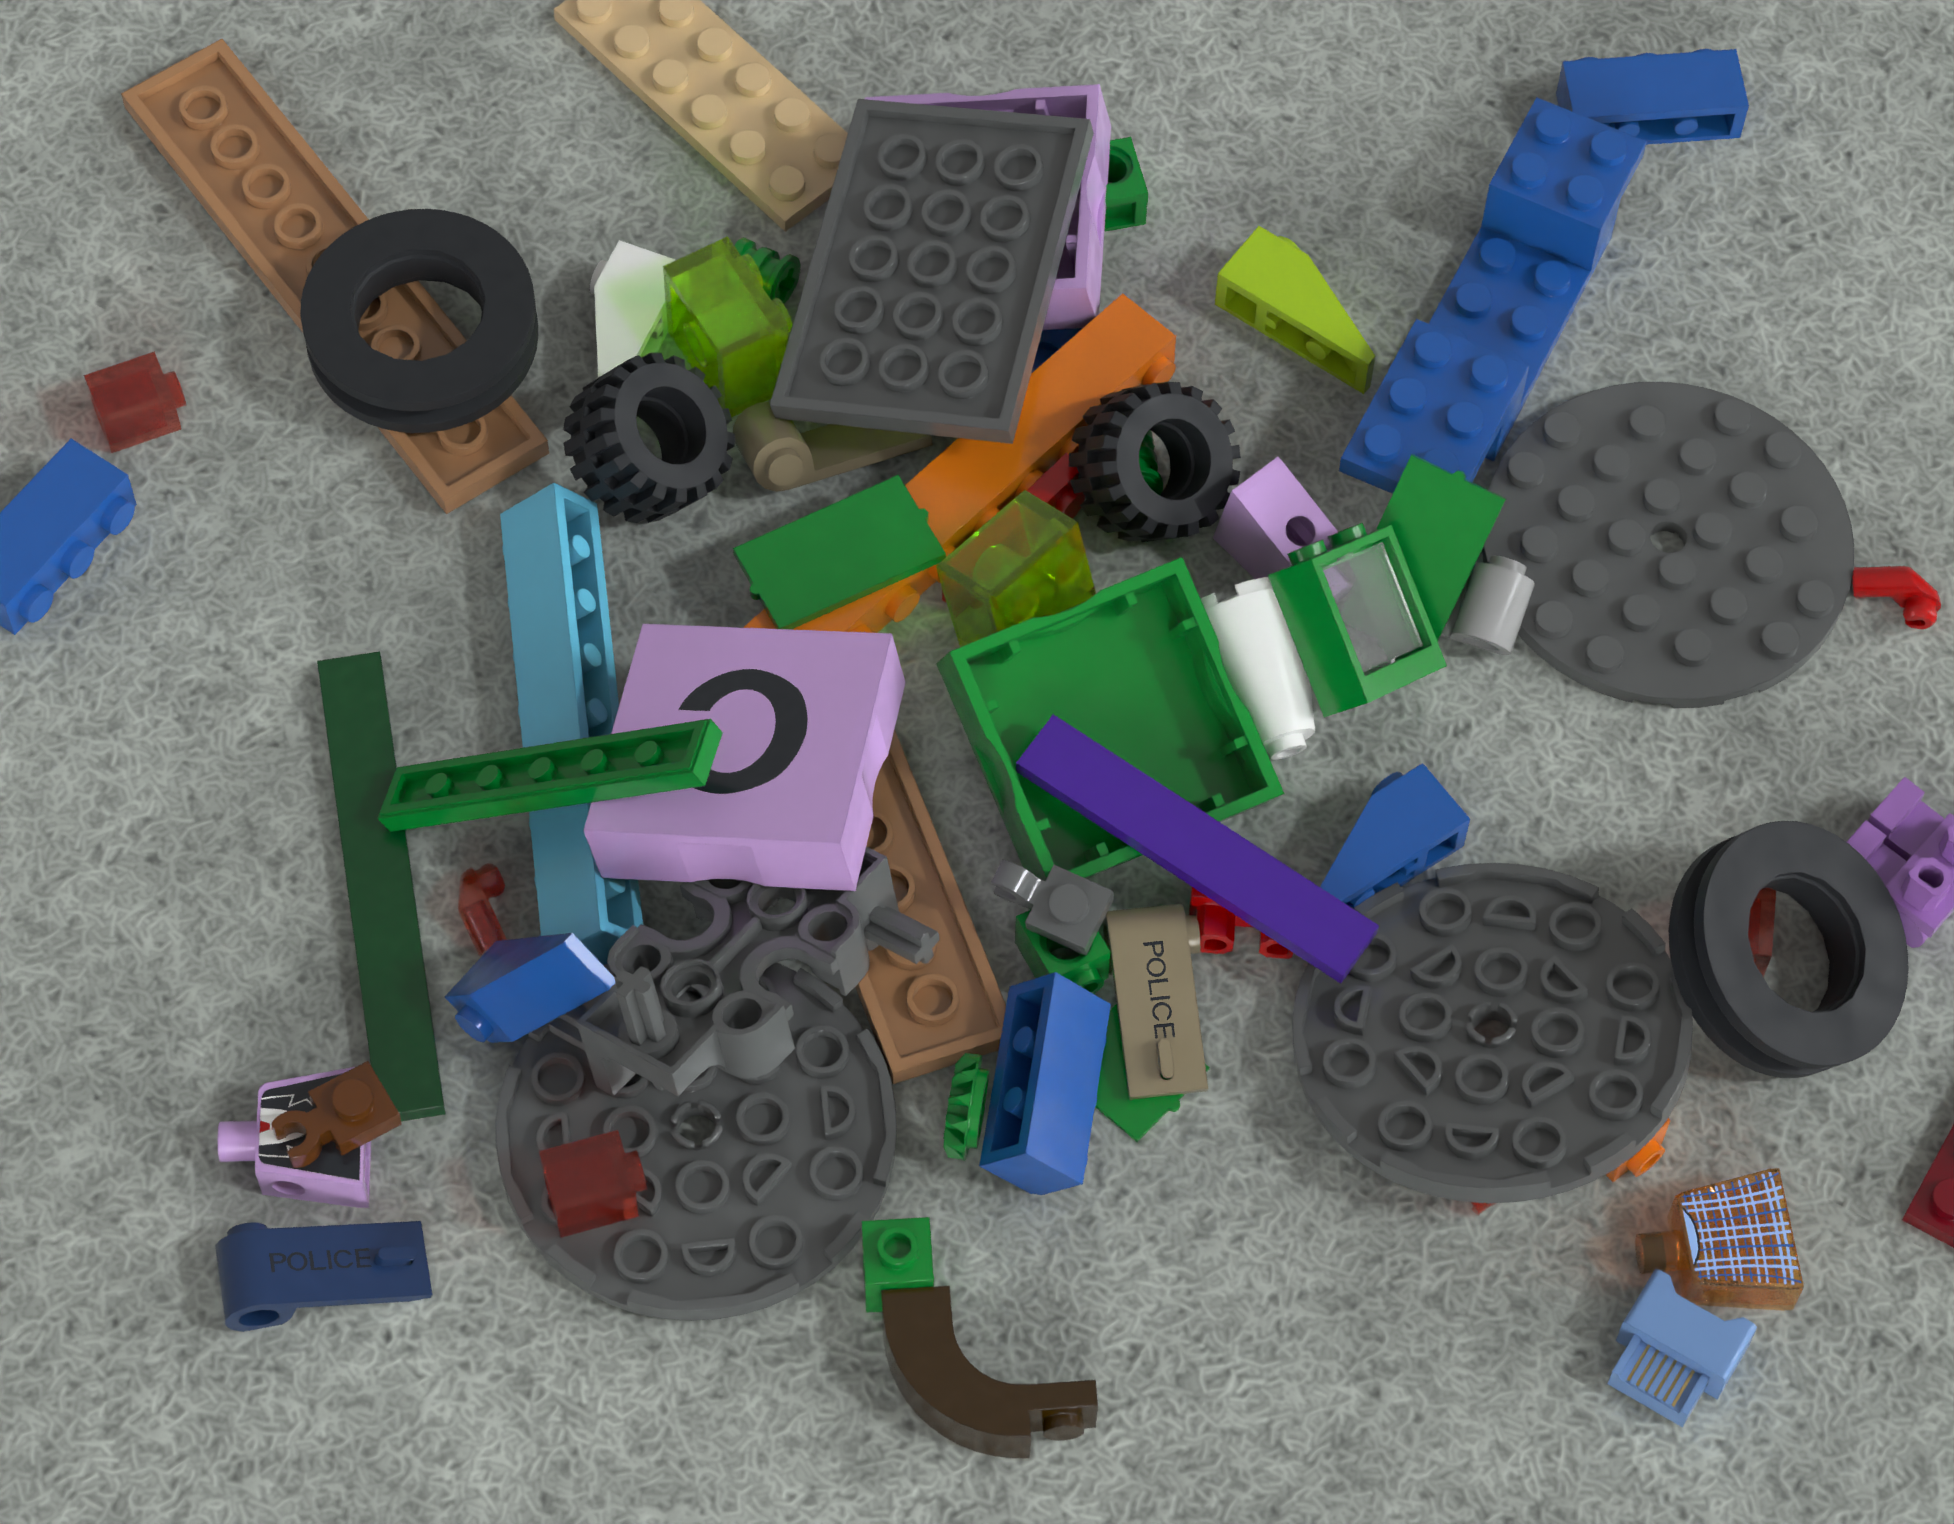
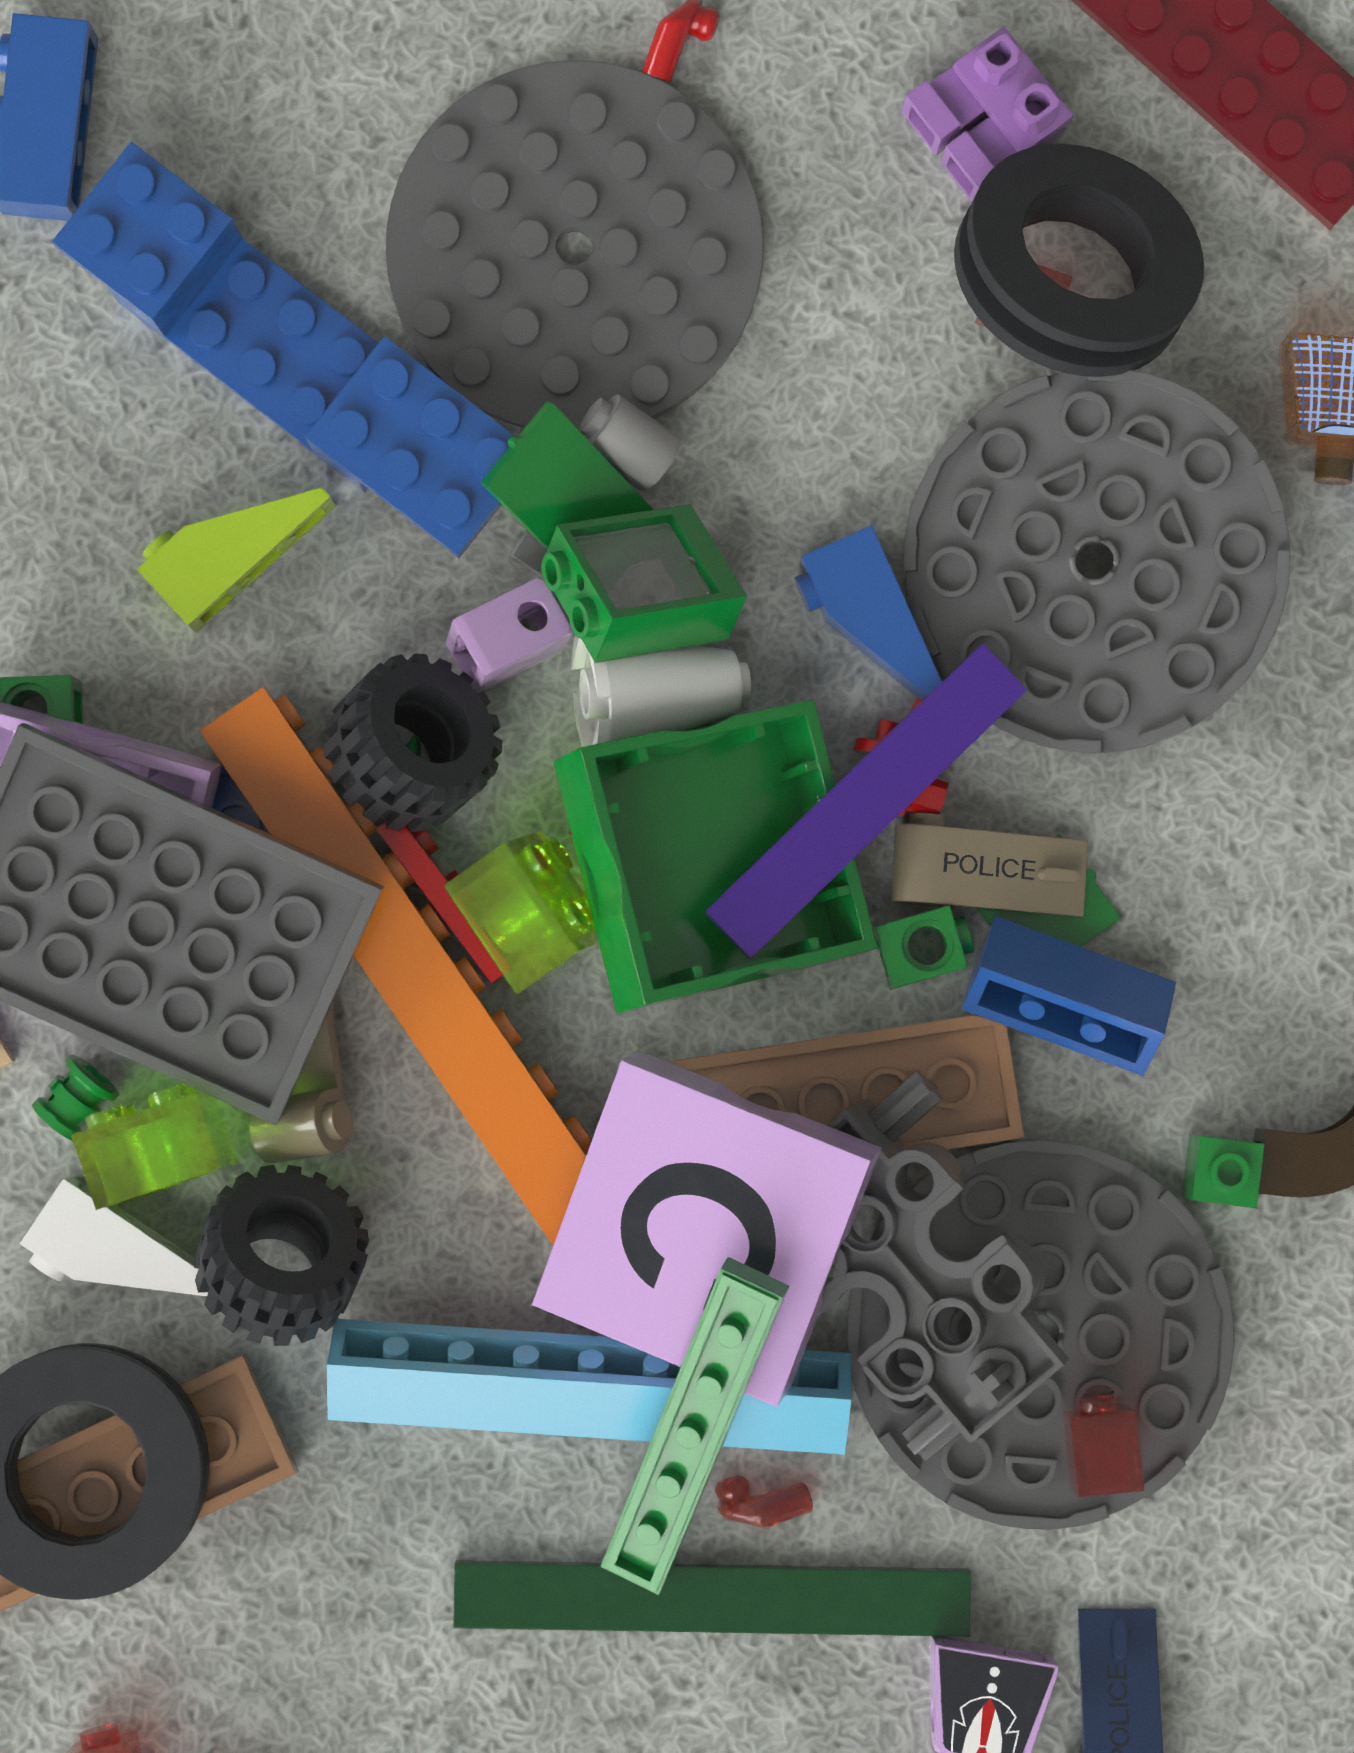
camera: 75 degrees left, 25 degrees up
(346, 1110) = (988, 1674): reddish brown plate -> none
(526, 985) = (886, 1482): blue slope -> none
(839, 554) = (457, 1084): green piece -> none
(965, 1106) = (1078, 1075): green gear -> none
(1062, 907) = (904, 943): dark grey plate -> none

